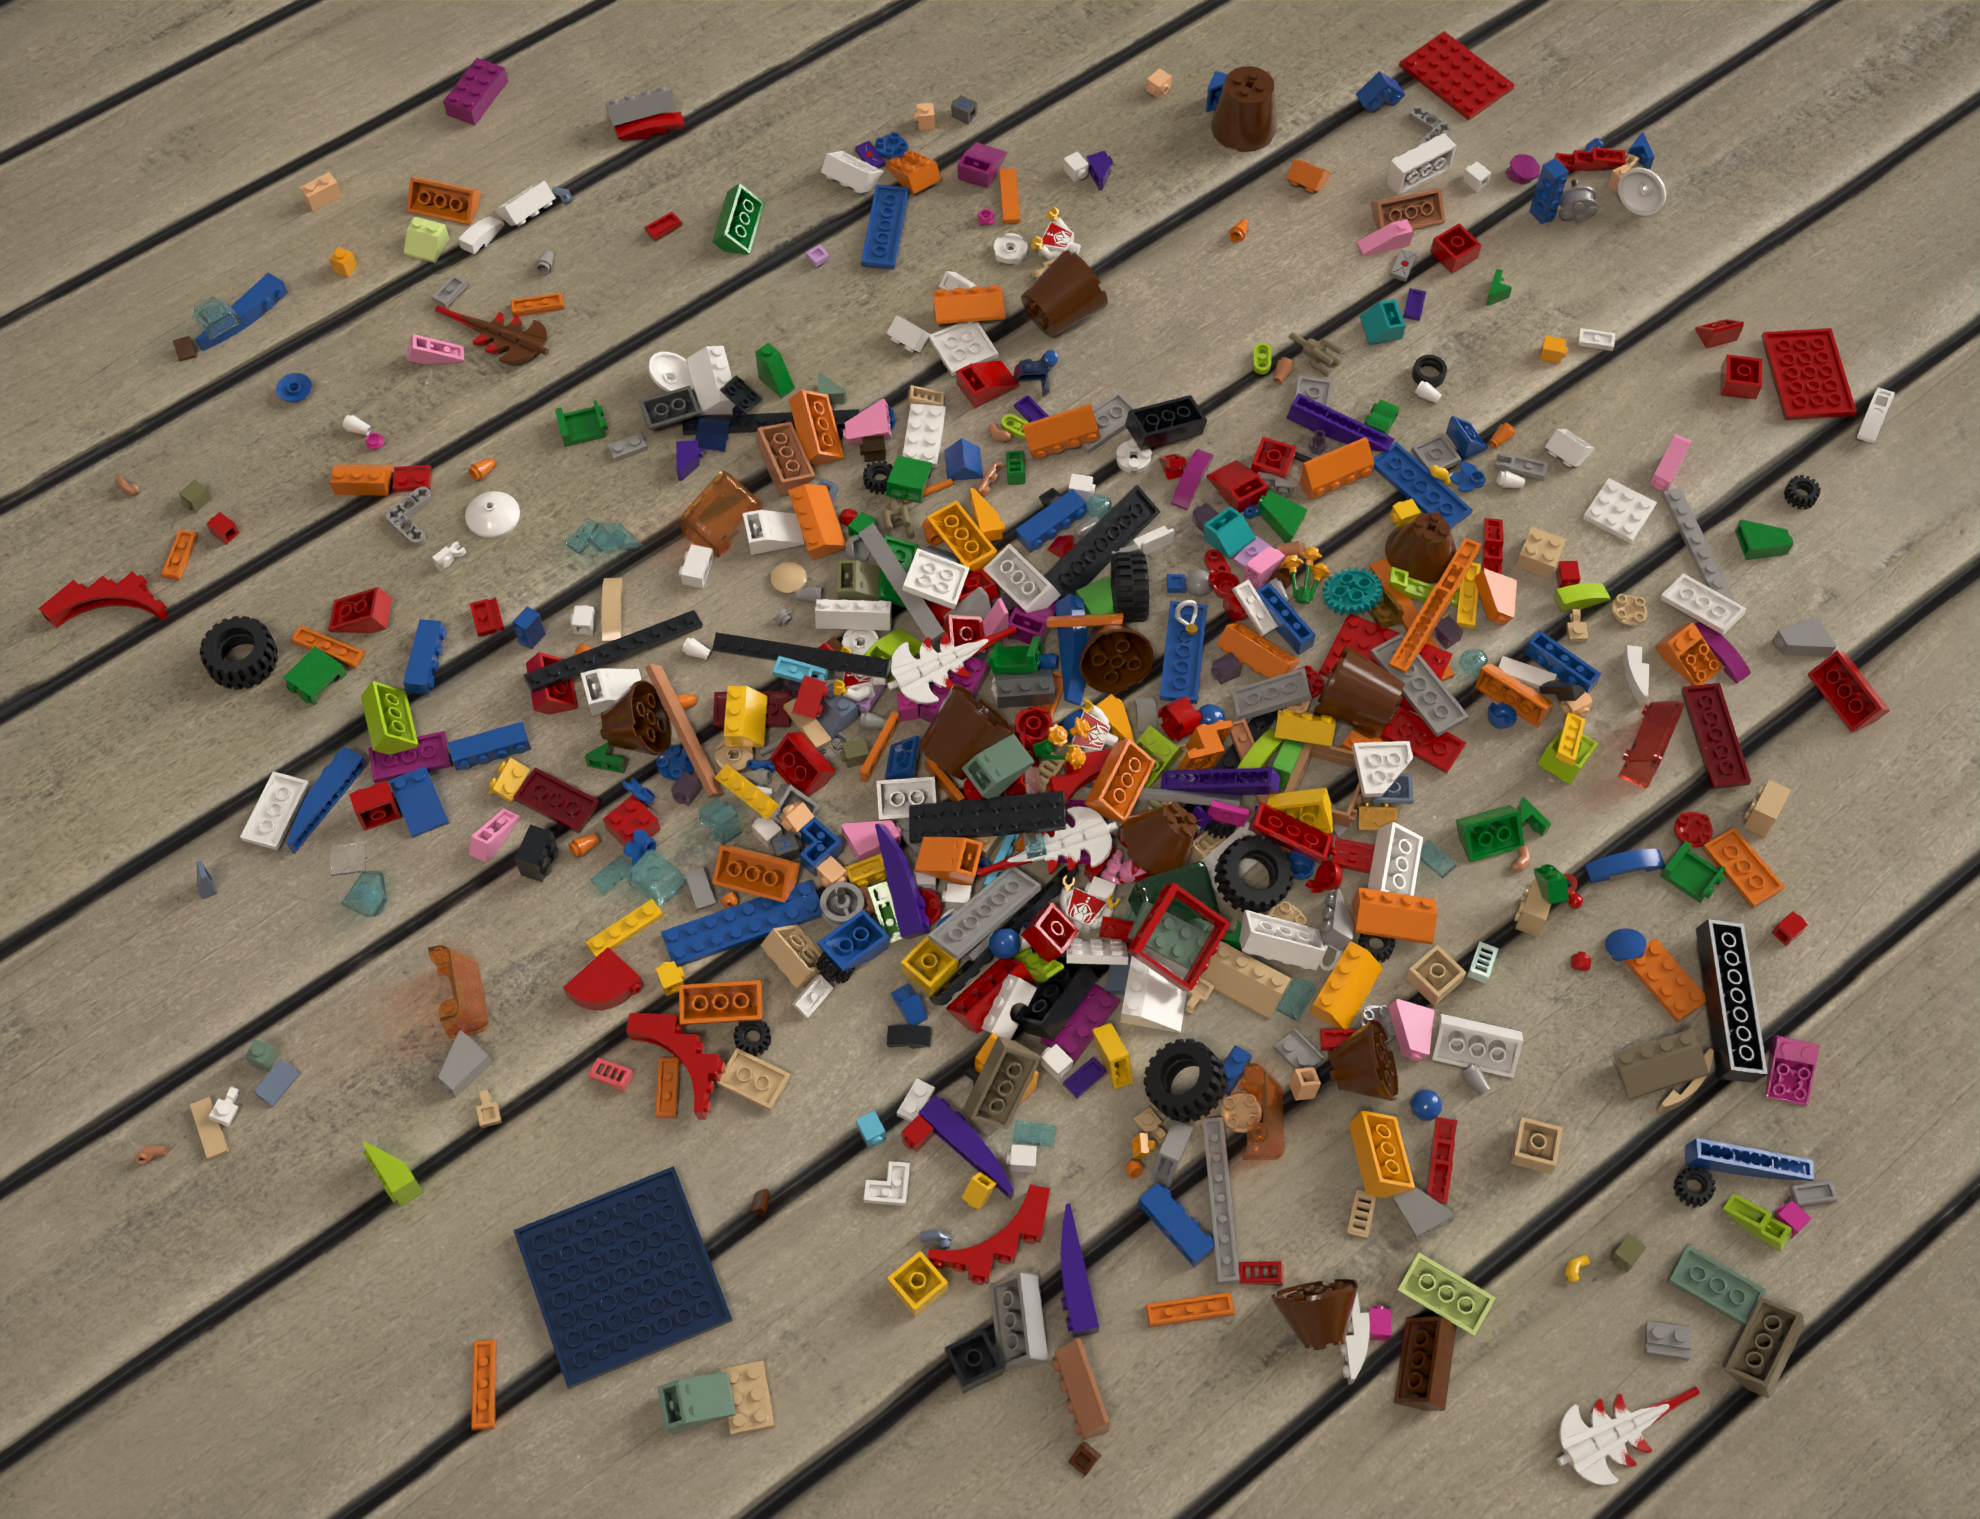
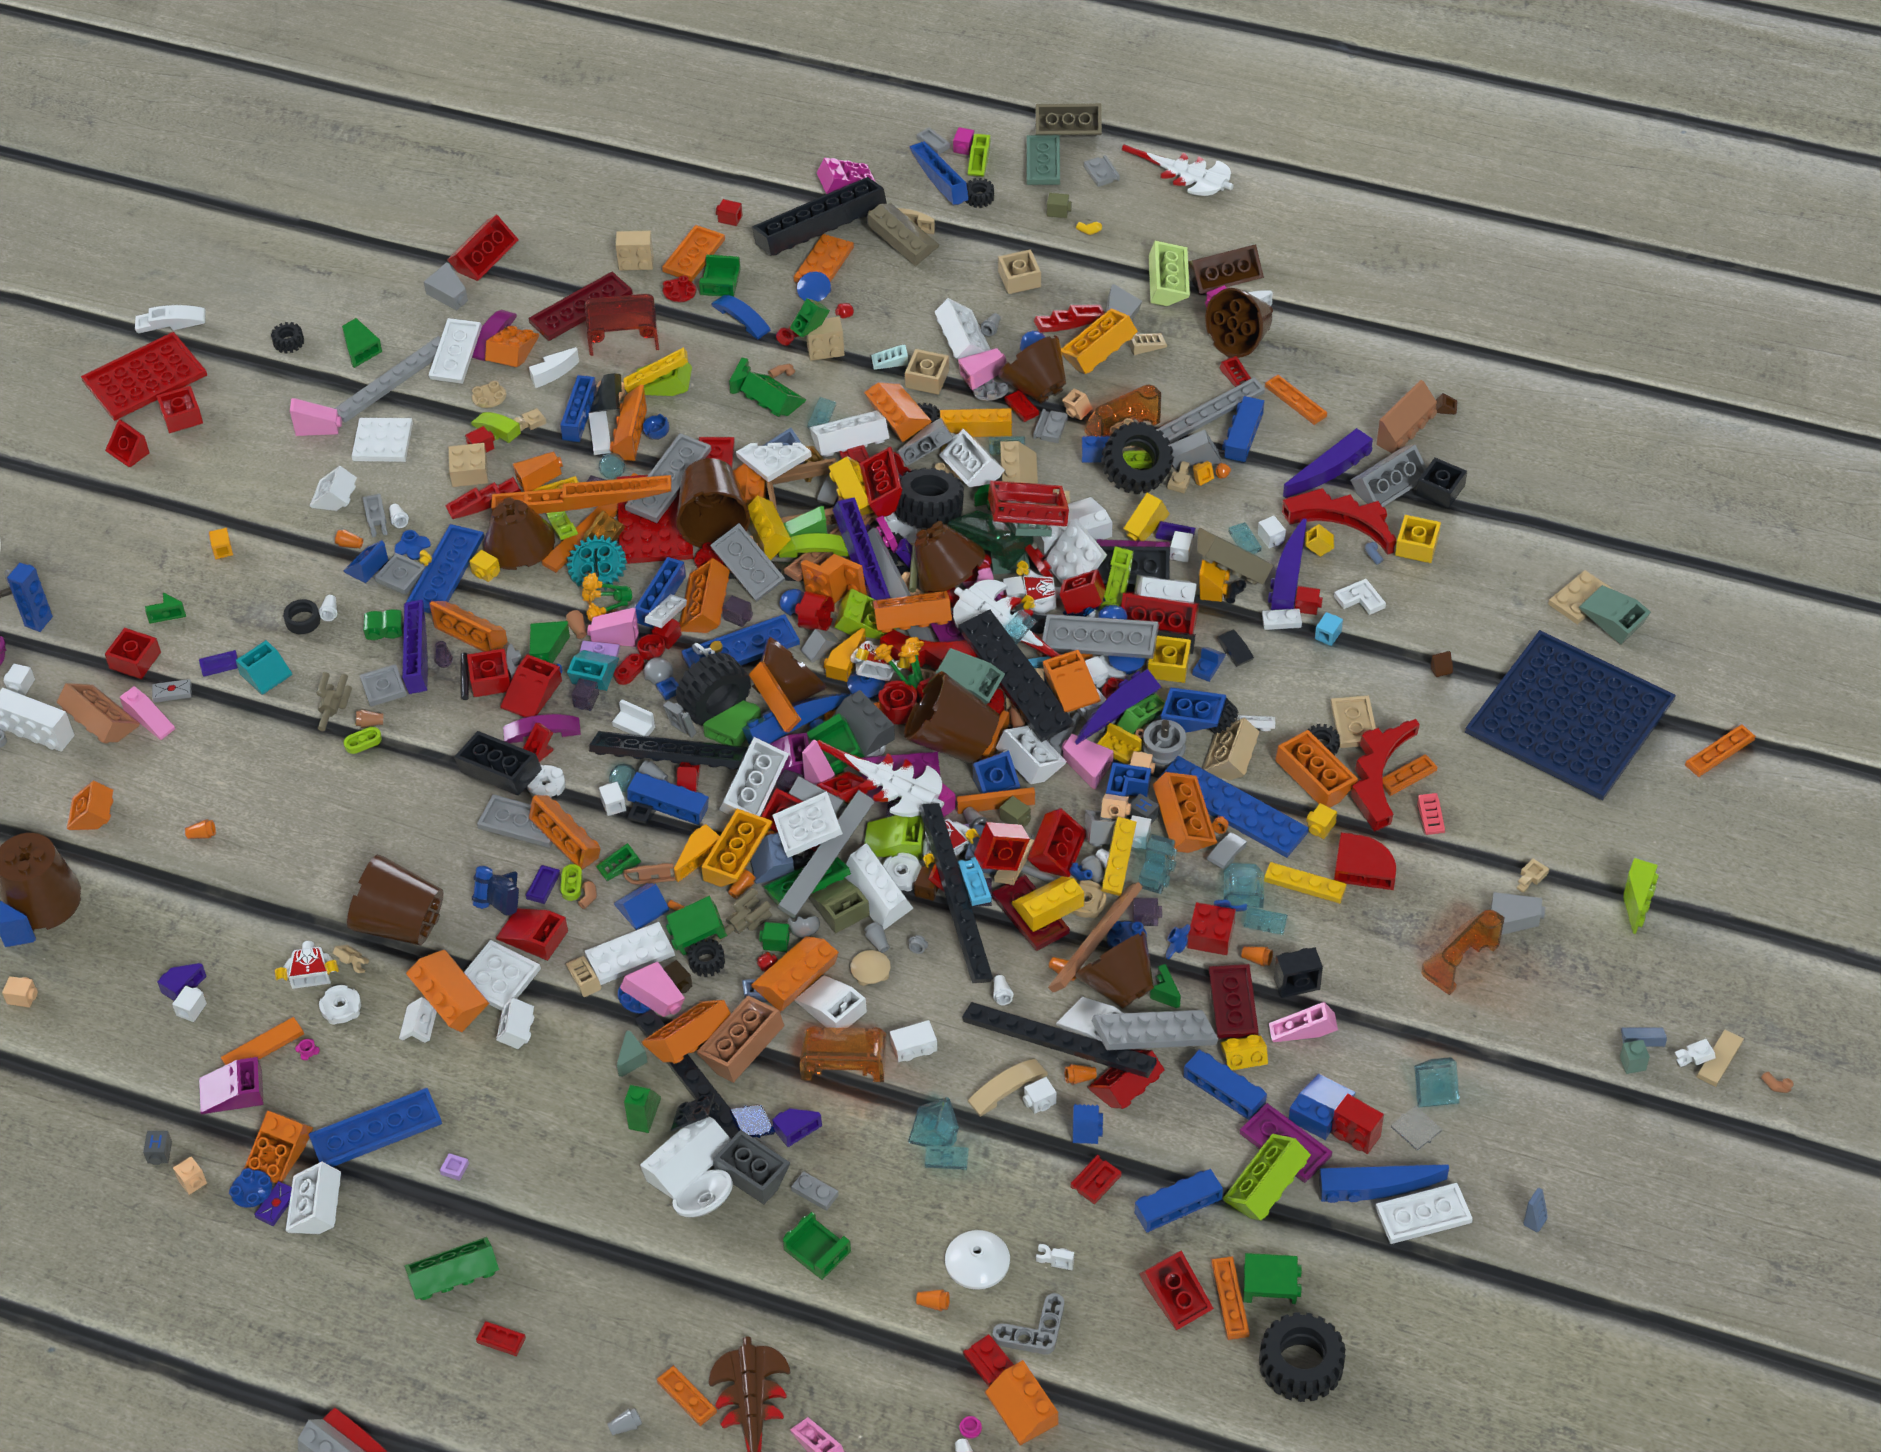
camera: 120 degrees left, 10 degrees down
(564, 714) = (1154, 1029): none -> light grey plate
(1596, 339) = (188, 521): white plate -> none

